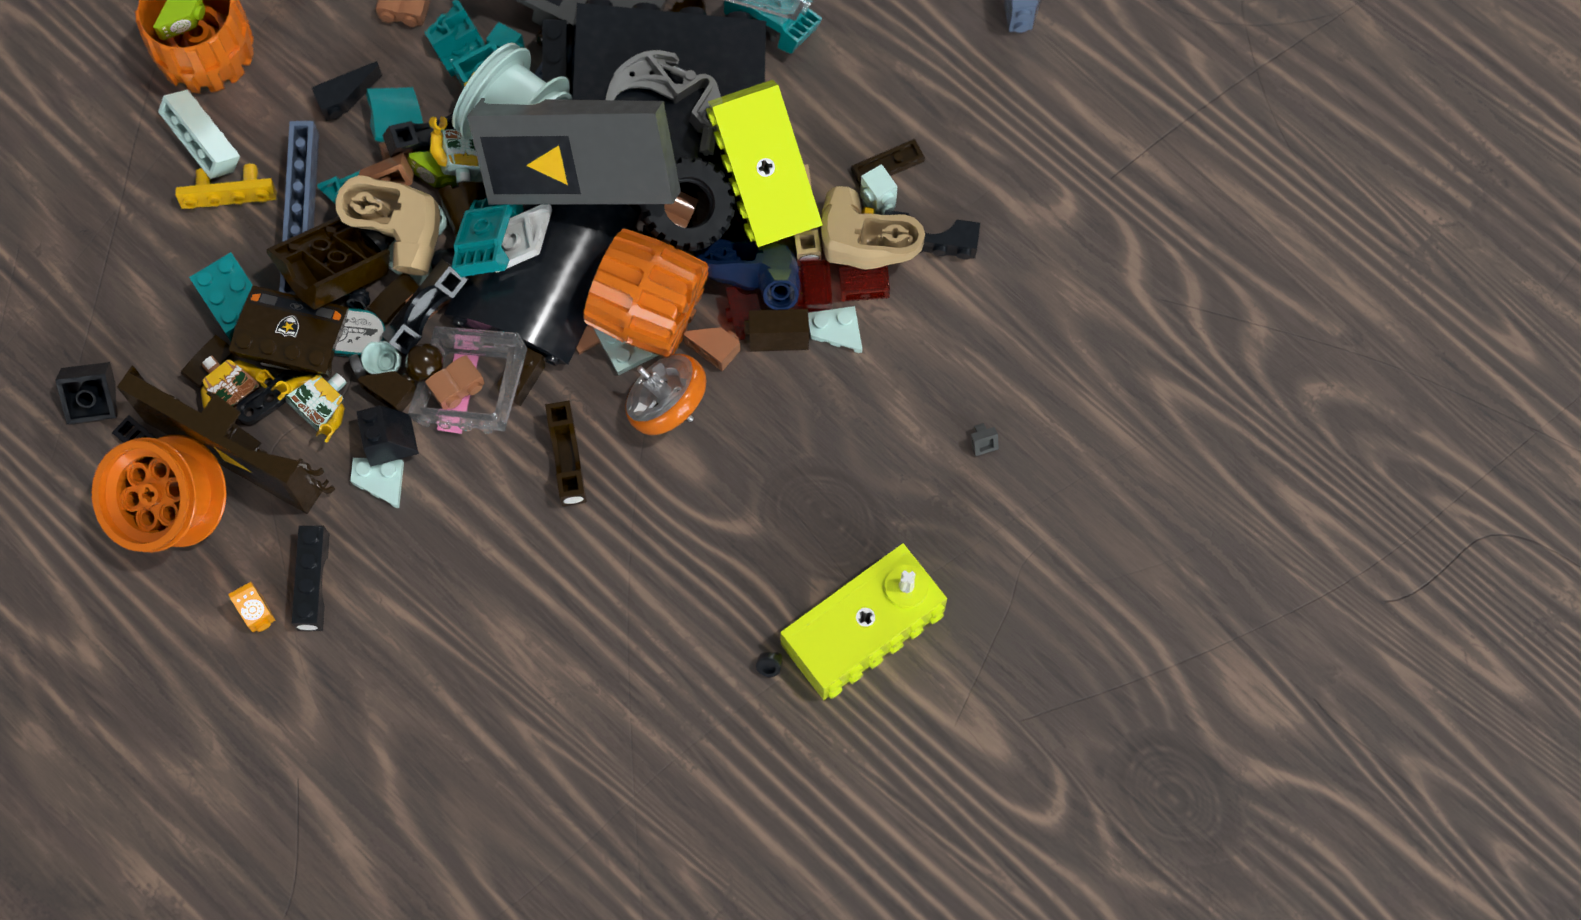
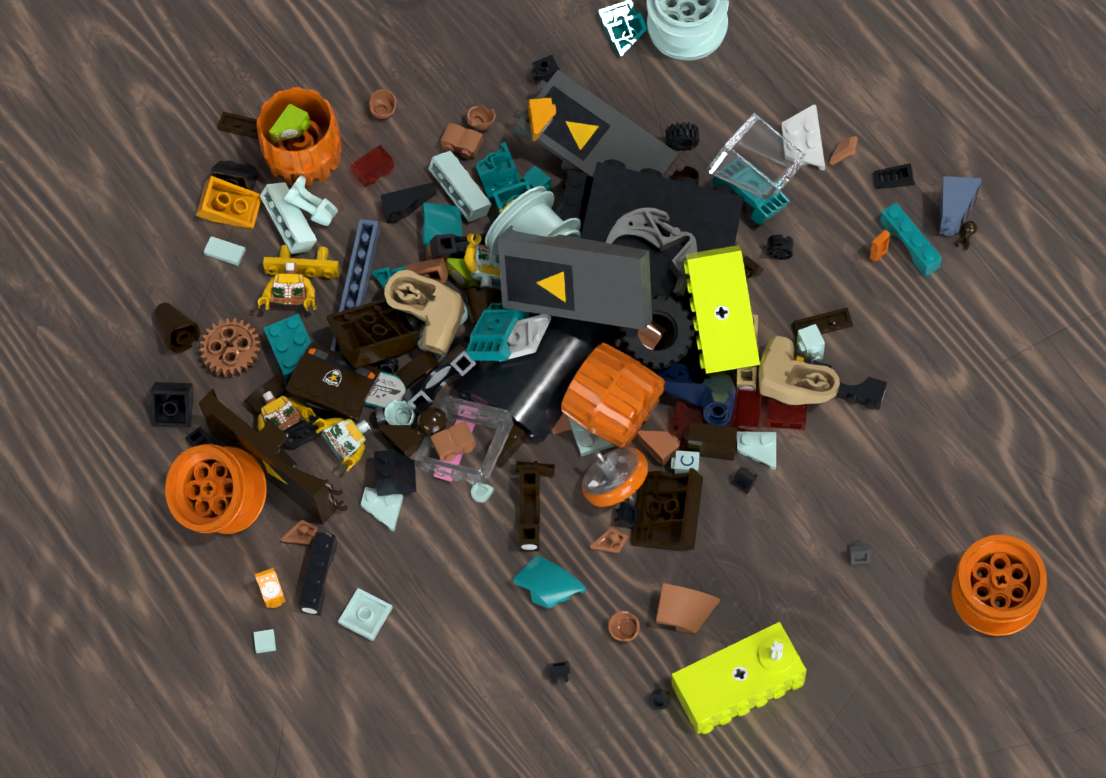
camera: 15 degrees right, 5 degrees down
(77, 295) = (176, 328): none -> dark brown cone
(115, 27) = (238, 125): none -> dark brown tile
(120, 127) = (228, 203): none -> light orange slope
(122, 92) = (237, 174): none -> black slope
(124, 188) = (224, 251): none -> light aqua tile
(151, 309) = (230, 347): none -> nougat gear
(214, 224) = (289, 289): none -> torso
(239, 117) = (321, 210): none -> light aqua piece
(256, 675) = (264, 641): none -> light aqua tile
(280, 531) = (301, 533): none -> nougat piece
(295, 53) = (372, 166): none -> clear red brick
(379, 620) = (365, 614): none -> light aqua plate
(409, 61) = (459, 186): none -> light aqua brick
(501, 441) = (481, 492): none -> light aqua tile
(576, 398) = (545, 469): none -> dark brown pin
(604, 541) = (547, 582): none -> teal slope
(637, 648) = (558, 669): none -> black tile
(673, 476) = (610, 541): none -> nougat piece
(688, 439) = (627, 515): none -> black tile
(709, 580) = (624, 626): none -> nougat hair
(738, 426) = (668, 510): none -> dark brown piece
(750, 363) = (684, 461): none -> light aqua brick
(781, 544) = (685, 608): none -> nougat slope
(792, 106) = (751, 267): none -> dark brown tile
(819, 76) = (779, 247): none -> black wheel
(826, 372) = (744, 479): none -> black tile
(941, 56) = (879, 246): none -> orange tile
(994, 57) = (922, 252): none -> teal arch
(1043, 21) = (968, 230): none -> dark brown arm
(1178, 415) = (1015, 558): none -> orange wheel

